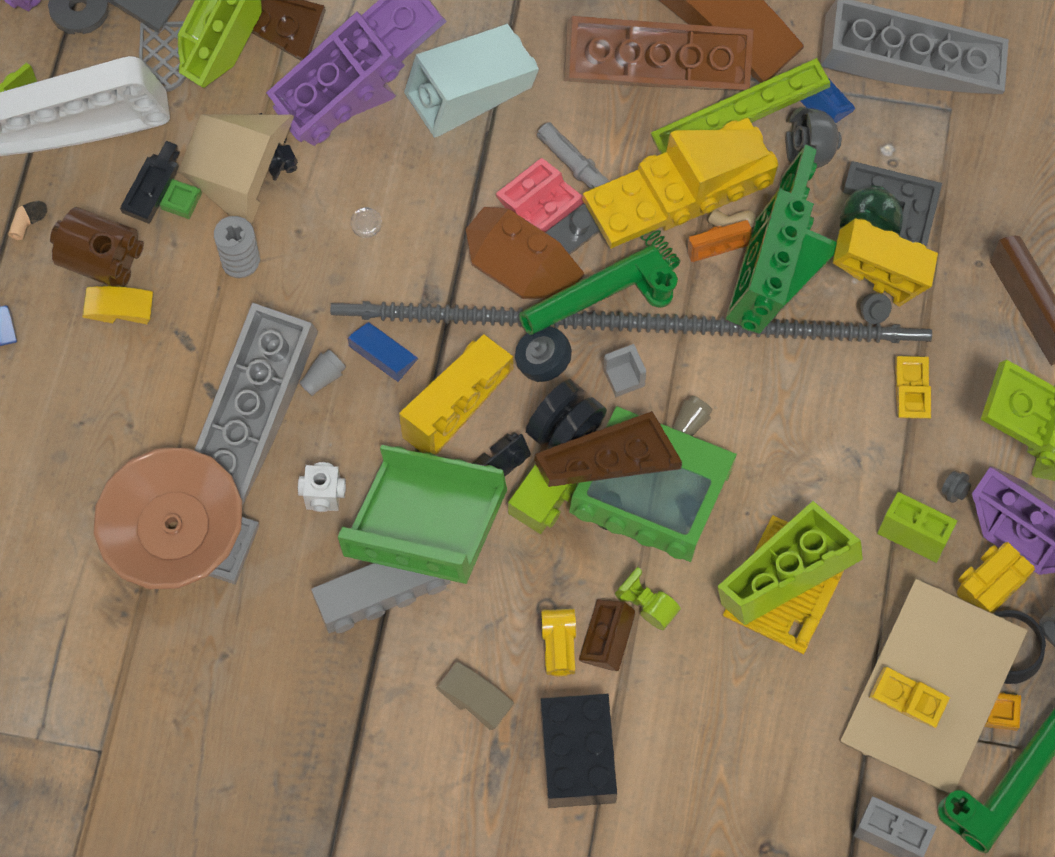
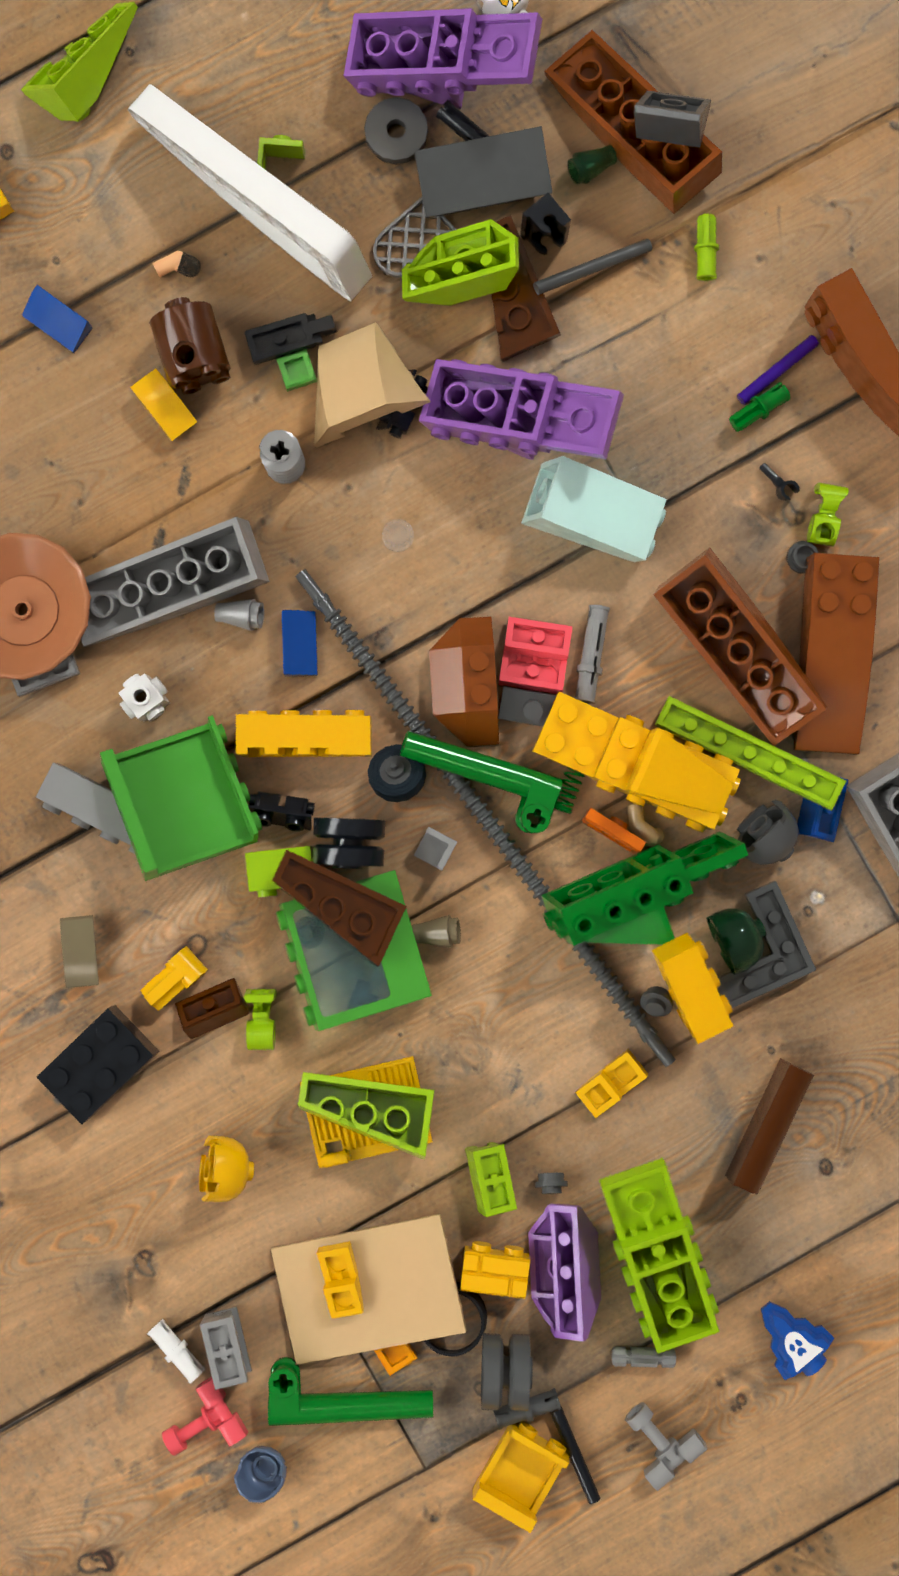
camera: 50 degrees right, 20 degrees up
(744, 719) = (224, 1169): none -> yellow cylinder

